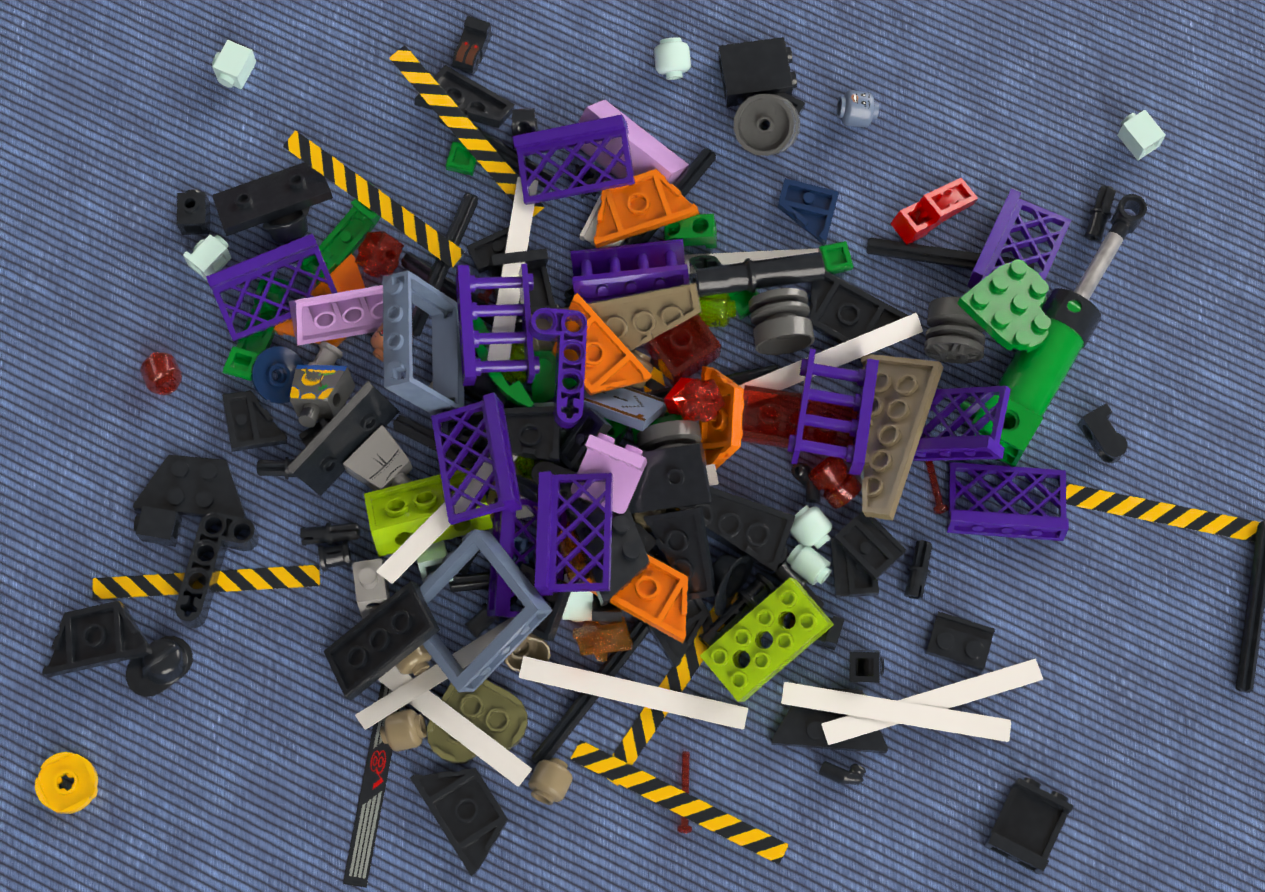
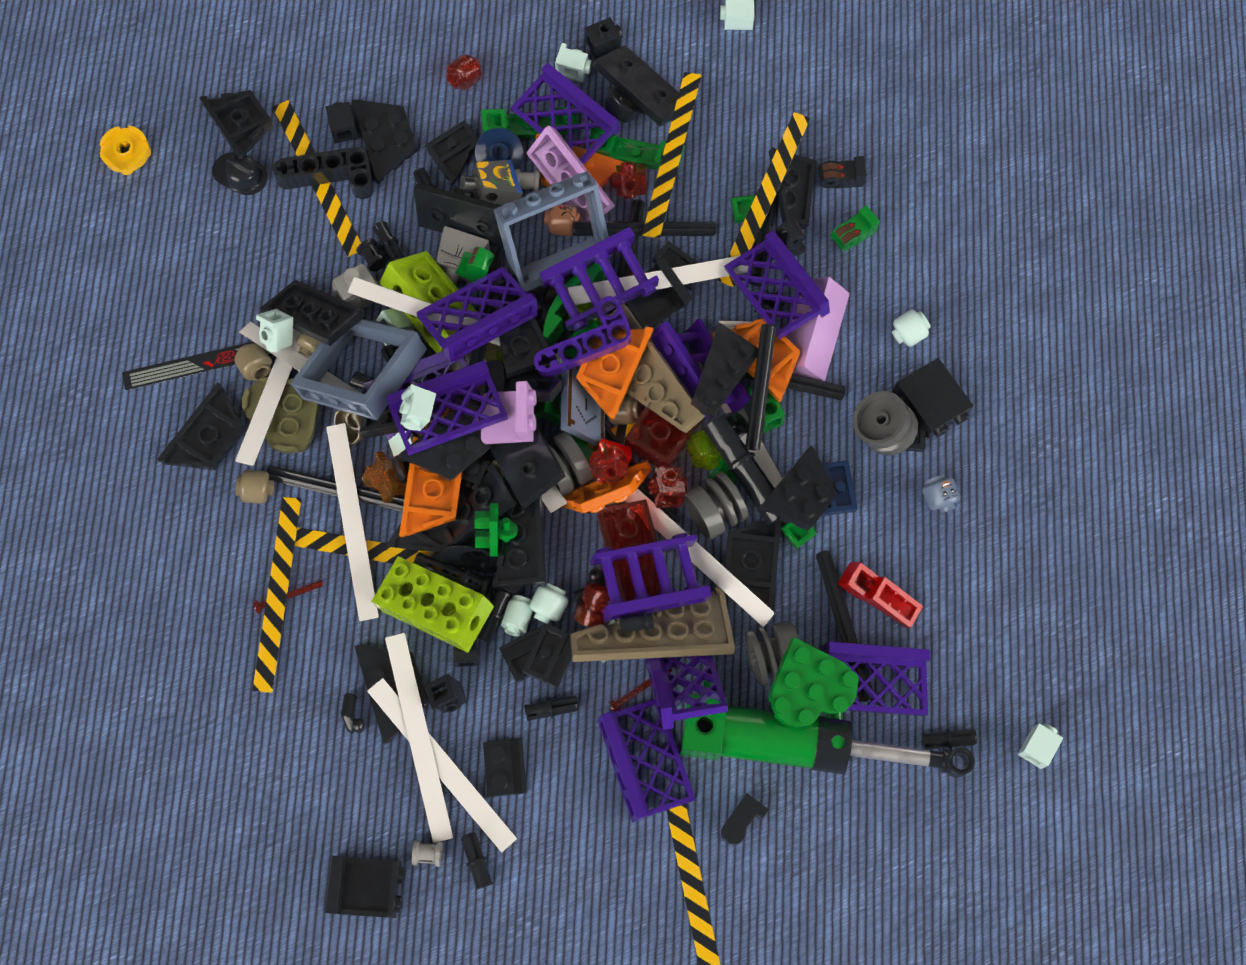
camera: 65 degrees right, 0 degrees up
(391, 690) = (275, 330): none -> light aqua brick
(411, 445) = (475, 265): none -> green leg
(540, 61) = (855, 229): none -> green leg
(568, 556) = (416, 407): none -> light aqua brick
(650, 245) = (723, 369): none -> black wing
(678, 221) = (760, 387): none -> black axle
(721, 543) = (489, 520): none -> green hips
(743, 357) = (668, 487): none -> clear red brick
(805, 232) = (801, 493): none -> black wing
(878, 438) = (636, 622): none -> black pin
(1019, 750) = (427, 853): none -> light grey bush
(1044, 705) = (476, 861): none -> black axle

